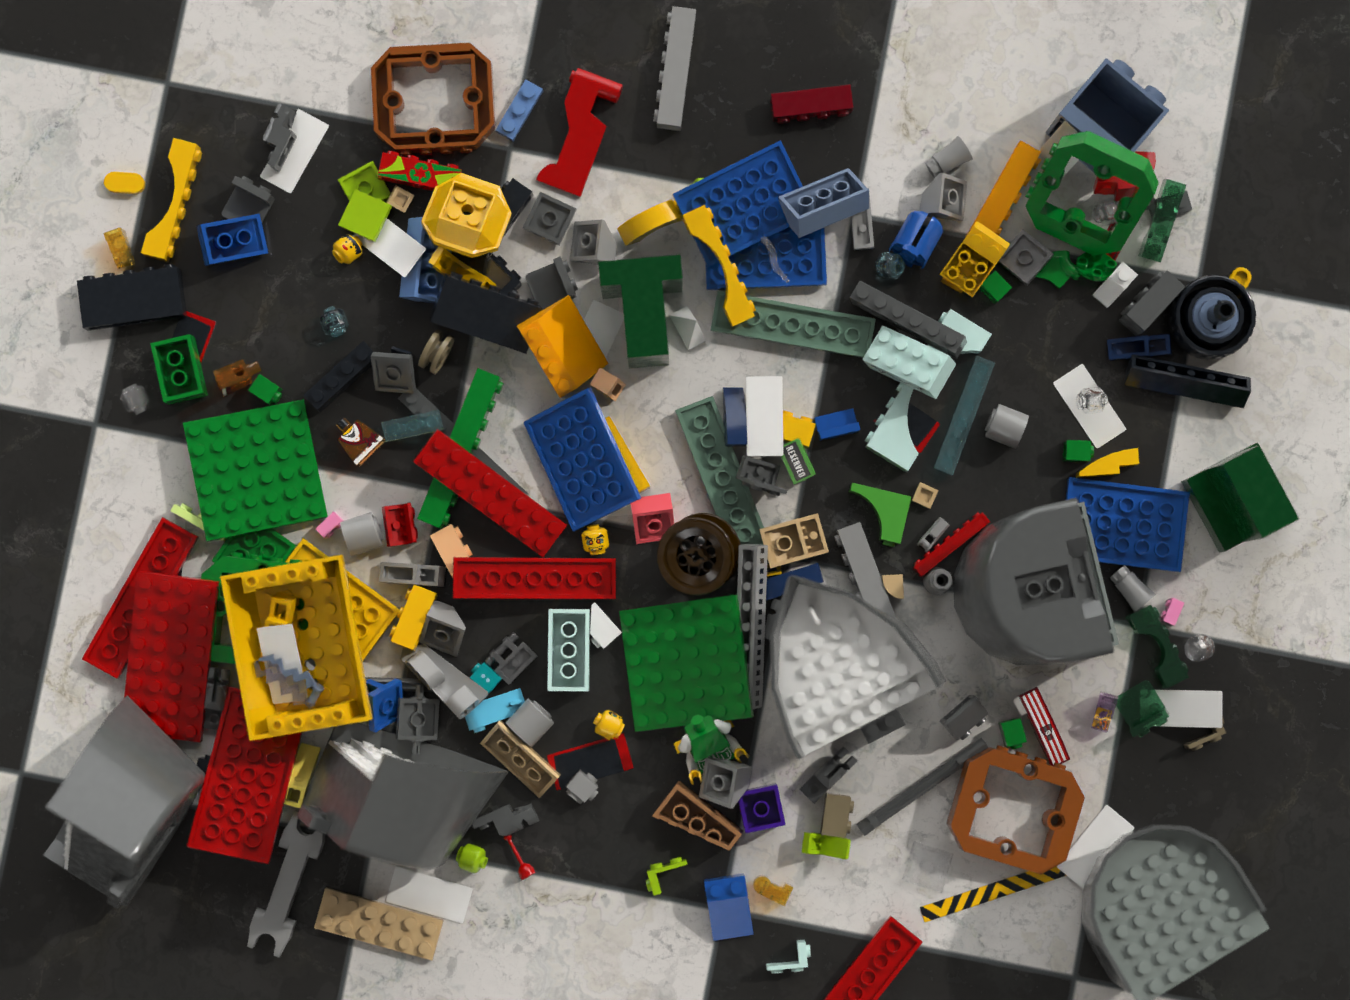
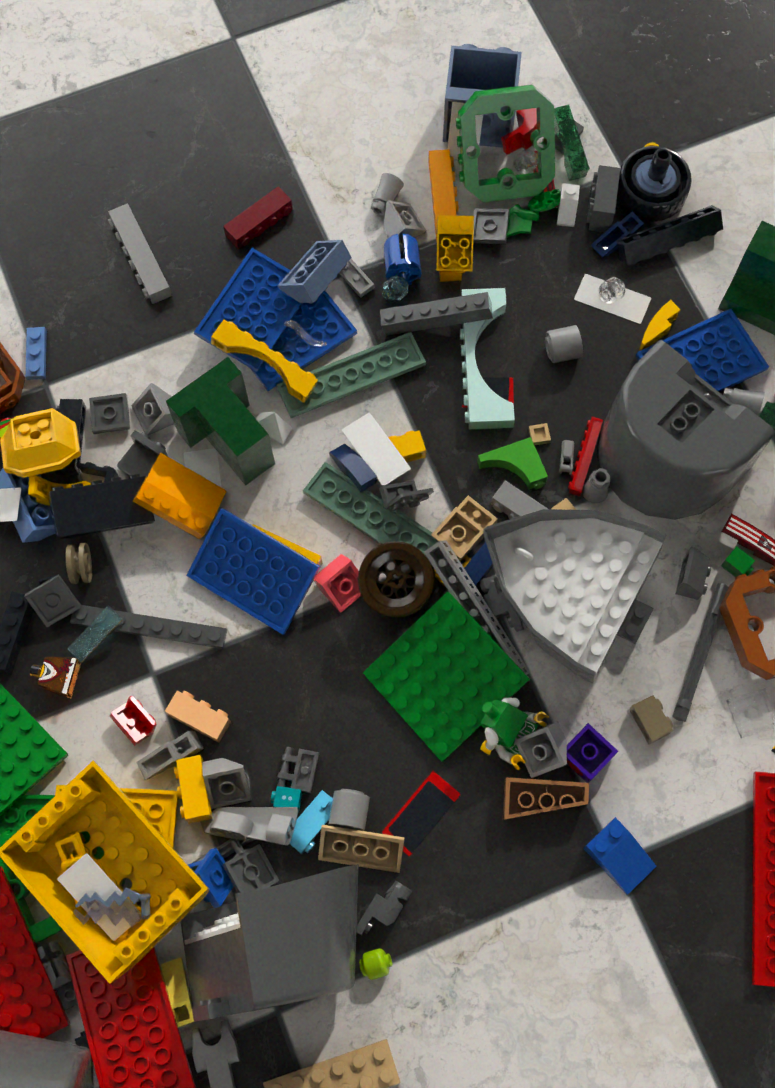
camera: 30 degrees left, 15 degrees down
(329, 525) = (73, 760): bright pink piece -> none
(362, 533) = (105, 747): light grey piece -> none
(429, 894) = (359, 1024): white sticker -> none
(466, 434) = (146, 626): green brick -> none
(489, 492) = (192, 643): red plate -> none
(525, 870) = (428, 942): red hinge -> none
(534, 578) = (273, 690): red plate -> none
(568, 649) = (342, 729): light aqua brick -> none
(582, 787) = (429, 837): light grey brick -> none
(584, 132) = (97, 338): red door -> none
(595, 539) = (305, 628): yellow head -> none
(602, 628) = (358, 694): white slope -> none
(607, 384) = (237, 504): light nougat brick -> none
(608, 724) = (416, 770): yellow head -> none
(649, 221) = (190, 363): yellow arch -> none
(653, 882) = (544, 879): lime bracket -> none
(771, 890) = (639, 818): clear yellow leg -> none
(797, 461) = (425, 466): panel -> none
(803, 952) = (709, 853): light aqua bracket -> none
(826, 845) = (662, 747): lime bracket -> none
(827, 775) = (621, 692): dark grey plate -> none
(836, 424) = (436, 425): blue panel -> none
(909, 362) = (458, 341): light aqua brick -> none
(964, 415) = (526, 359): clear light blue plate -> none
(995, 287) = (483, 258): green brick -> none
(1077, 451) = (628, 331): green brick -> none

